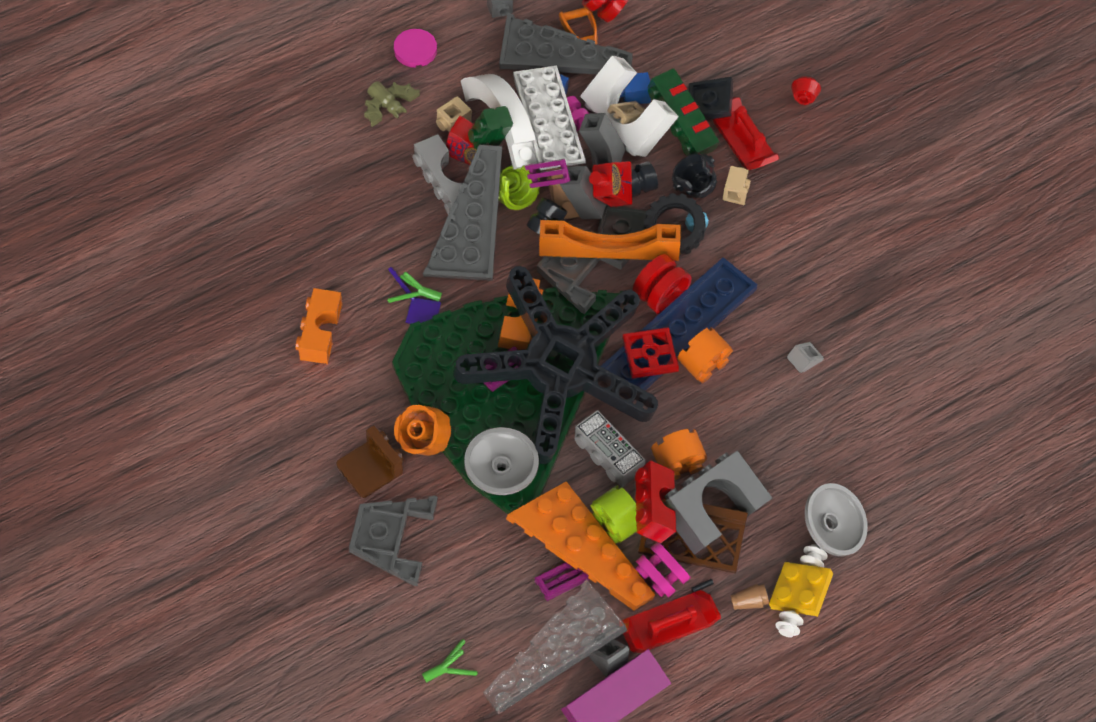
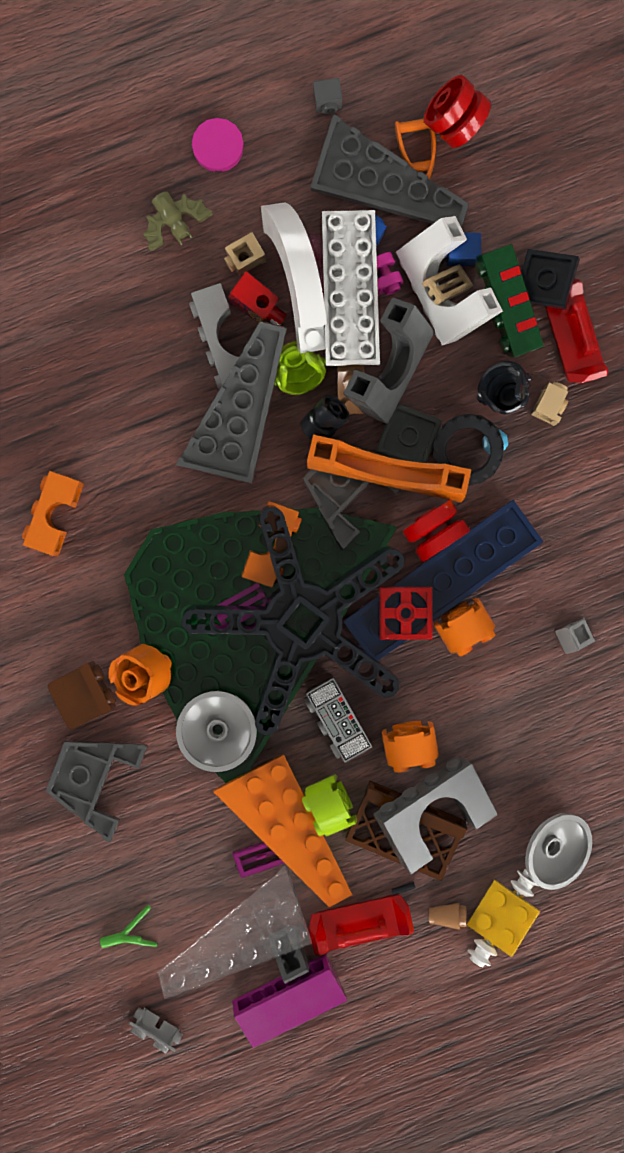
camera: 15 degrees right, 30 degrees up
(419, 309) = (169, 506): dark purple piece -> none
(422, 291) = (167, 479): bright green plant -> none
(491, 127) = (276, 301): dark green brick -> none
(534, 176) = (332, 381): magenta tile -> none
(612, 183) = (406, 390): red torso -> none
(643, 178) = (439, 379): black wheel -> none
(652, 516) = (368, 795): red arch -> none
(661, 585) = (364, 872): dark pink brick -> none

